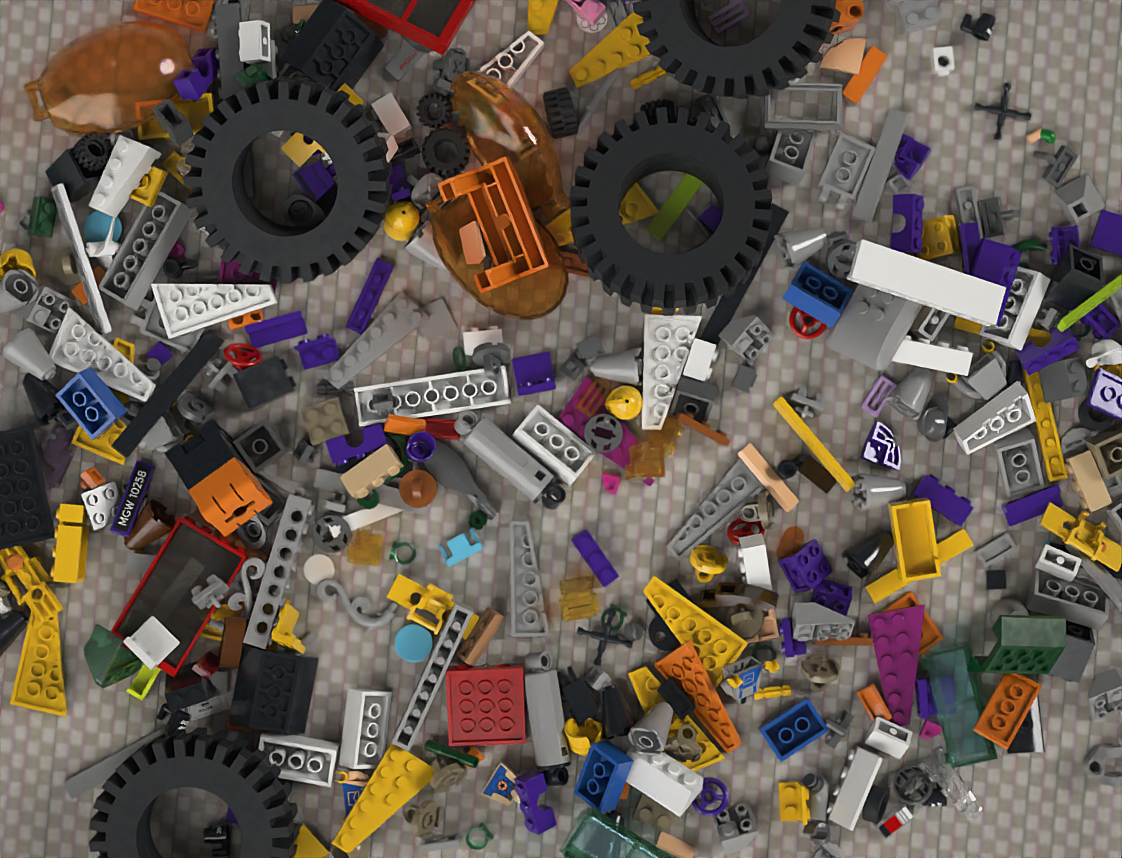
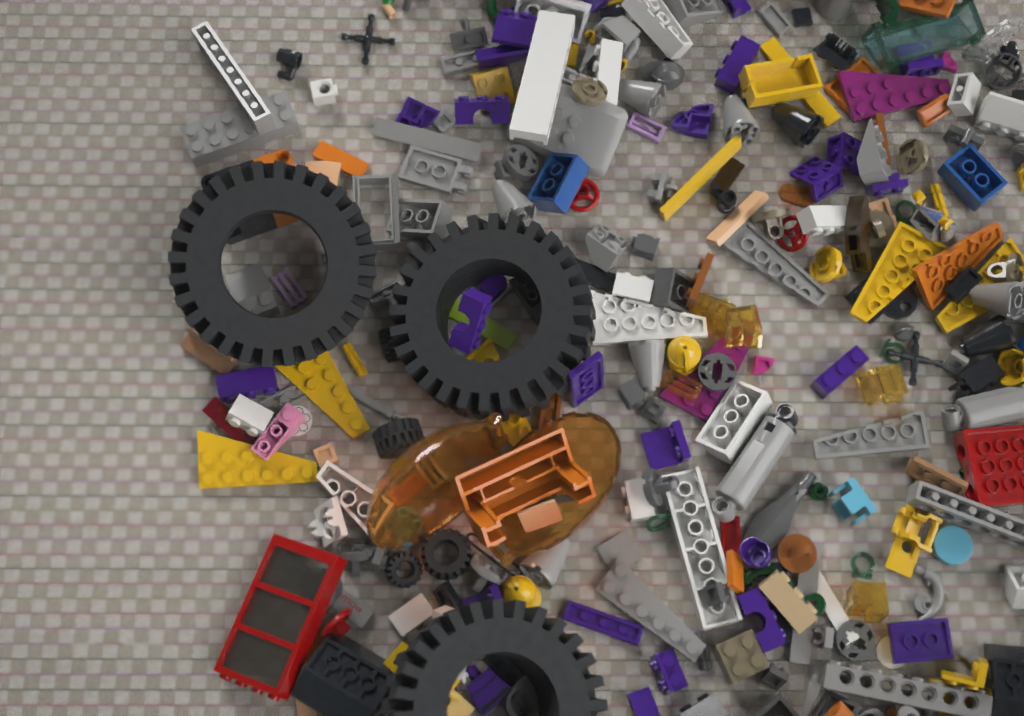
camera: 100 degrees left, 15 degrees down
(325, 595) = (920, 640): none -> dark purple tile
(385, 45) = (338, 624): none -> red piece
(485, 41) = (334, 522): none -> white piece
(553, 43) = (325, 453): none -> light nougat tile
(600, 298) = (585, 379): none -> dark purple tile
(655, 184) = (476, 307): none -> dark purple arch
(908, 330) = (589, 91): none -> dark tan tile
(947, 606) = (833, 54): none -> black hinge
(959, 340) = (588, 57): none -> light grey piece

